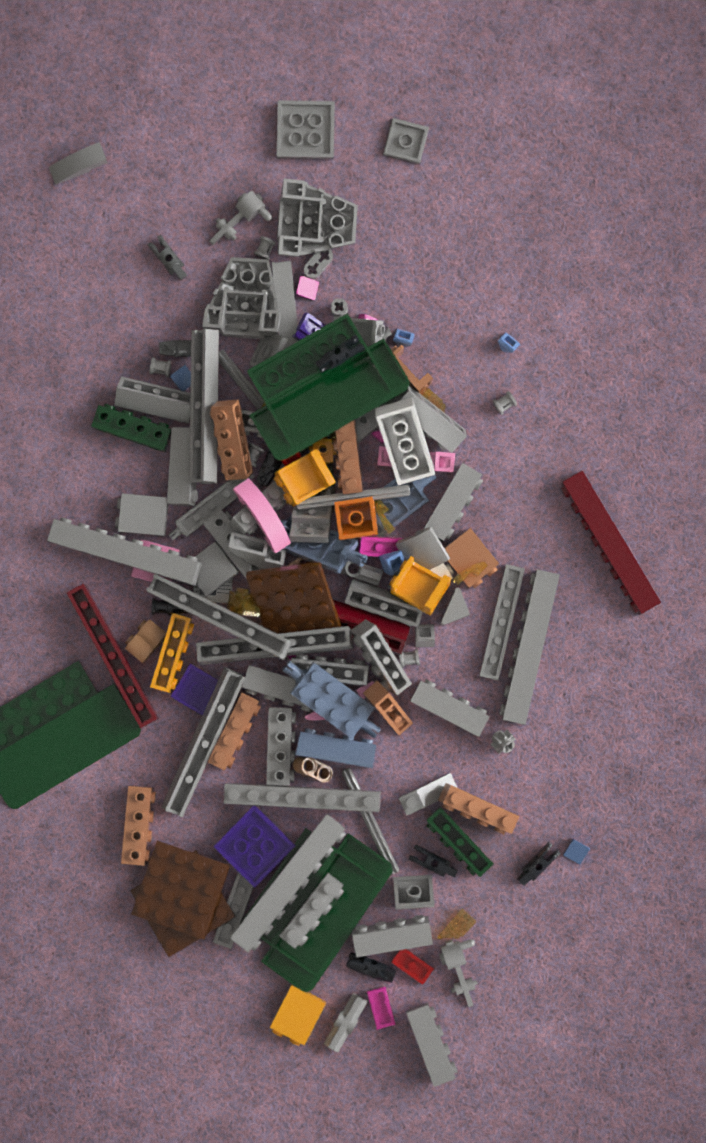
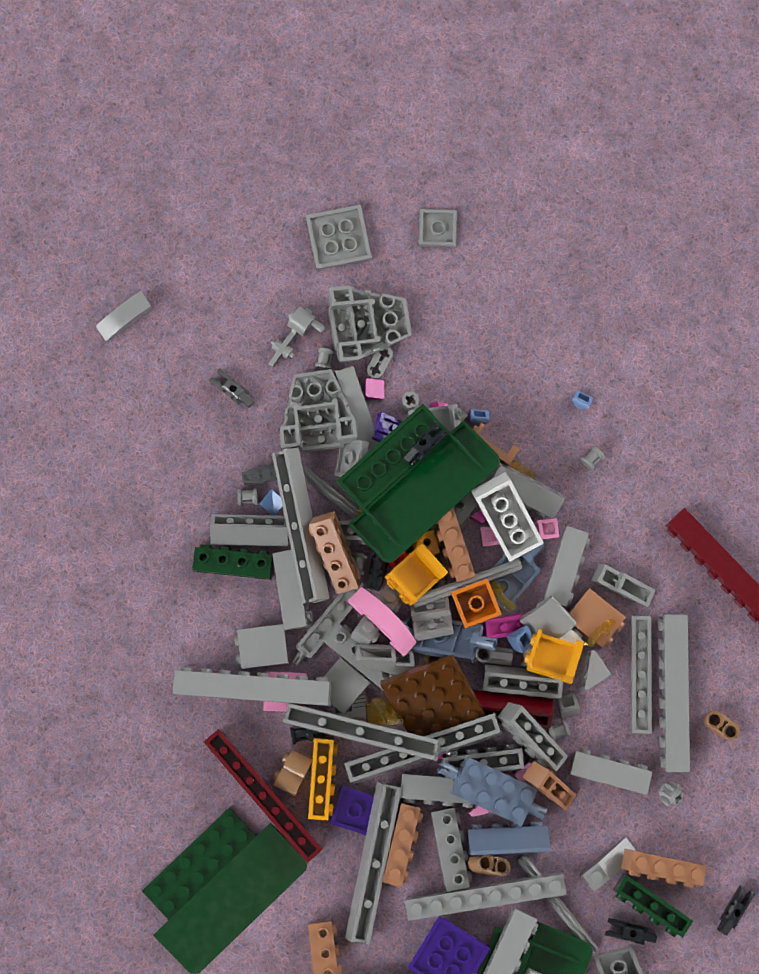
camera: 20 degrees left, 5 degrees down
(505, 532) = (623, 585): none -> light grey slope
(569, 686) = (722, 723): none -> medium nougat beam

